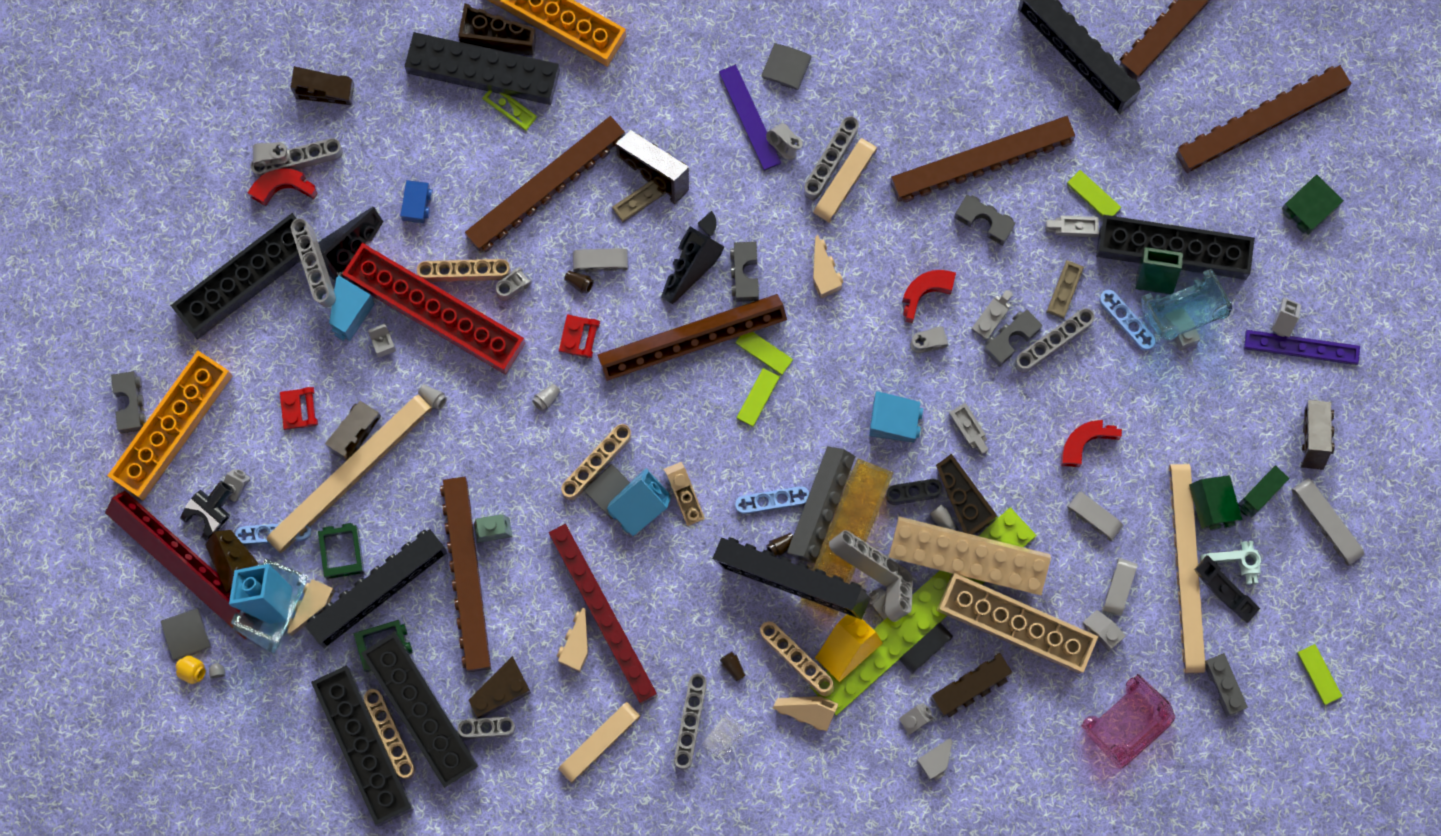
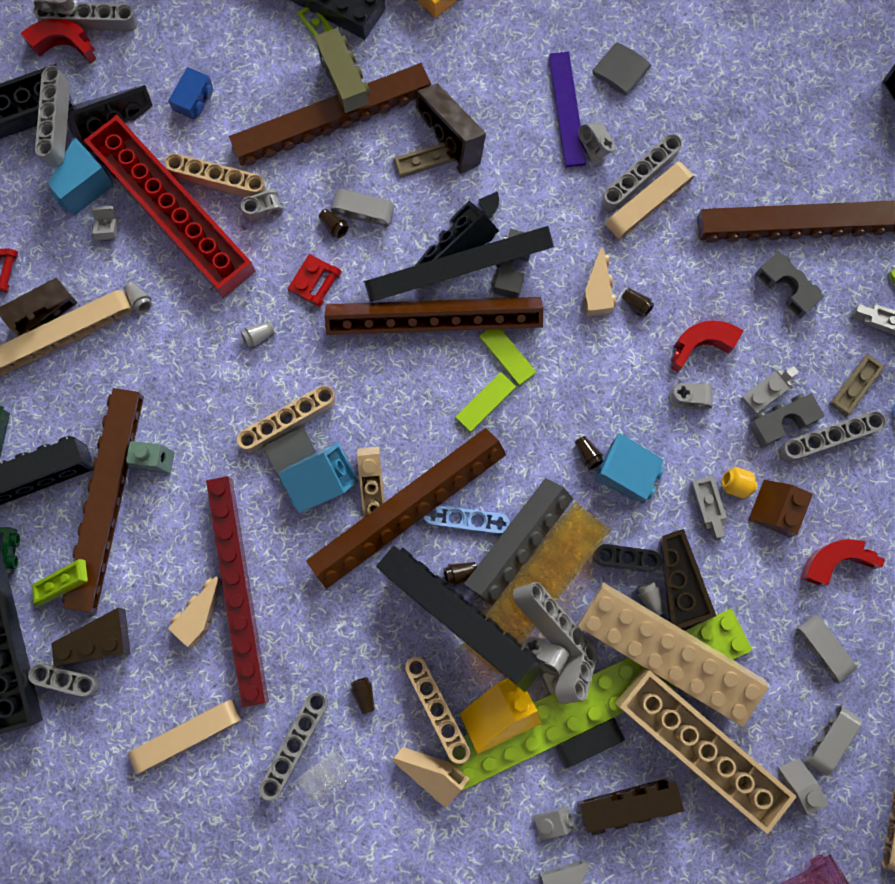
camera: 15 degrees right, 0 degrees up
(456, 651) = (59, 582): none -> lime tile
(545, 146) = (342, 70): none -> olive wedge
(700, 287) = (459, 264): none -> black beam
(720, 504) = (406, 508): none -> reddish brown brick
(858, 415) = (589, 453): none -> dark brown cone
(861, 273) = (638, 302): none -> dark brown cone
(875, 587) = (551, 656): none -> light grey piece
(988, 402) = (739, 482): none -> yellow head
(1027, 412) = (780, 507): none -> reddish brown slope

